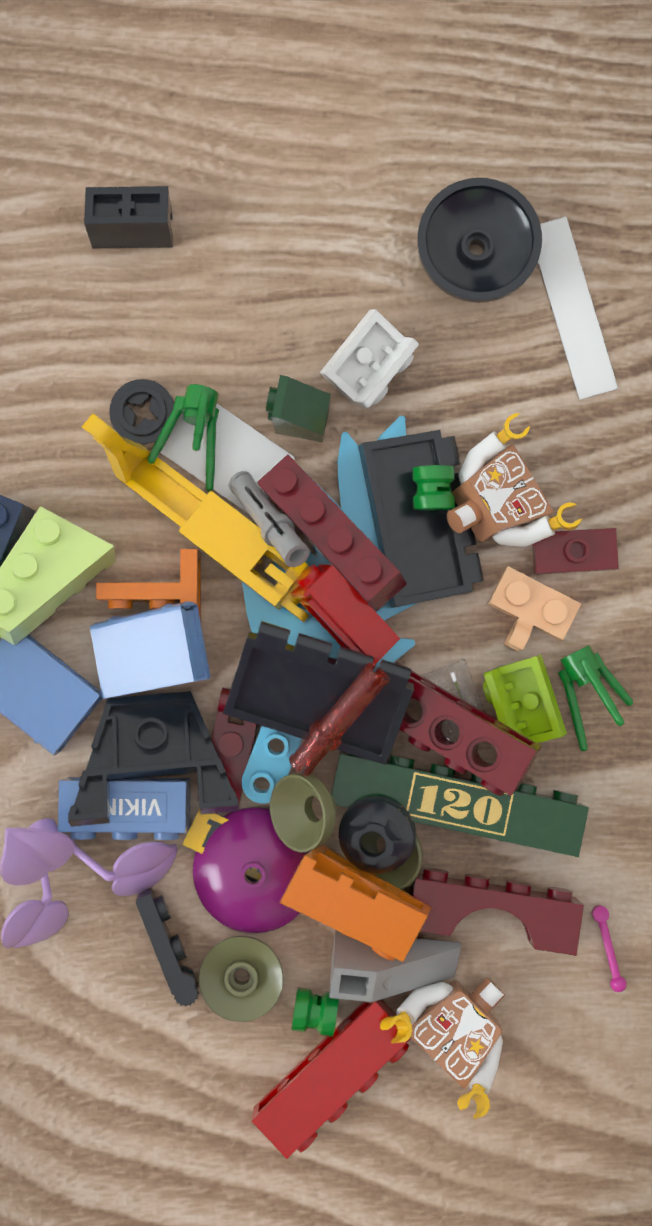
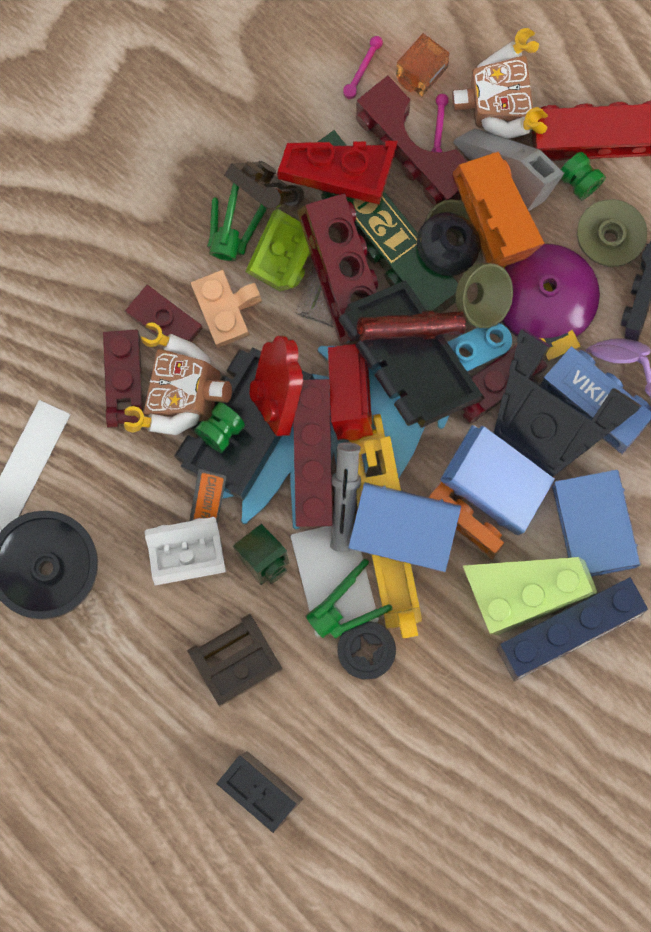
camera: 135 degrees left, 10 degrees down
(190, 533) = (404, 527): none -> medium blue piece
(233, 303) = (240, 670): none -> dark brown plate
(390, 420) = (207, 495): none -> orange sticker
(411, 559) = (278, 384): none -> red plate
(506, 976) = (442, 101): none -> dark pink hinge
(536, 821) = (352, 170): none -> red wing
(555, 996) = (422, 65): none -> clear orange brick
(563, 468) = (122, 374): none -> dark red plate
(606, 751) = (260, 182): none -> dark brown plate

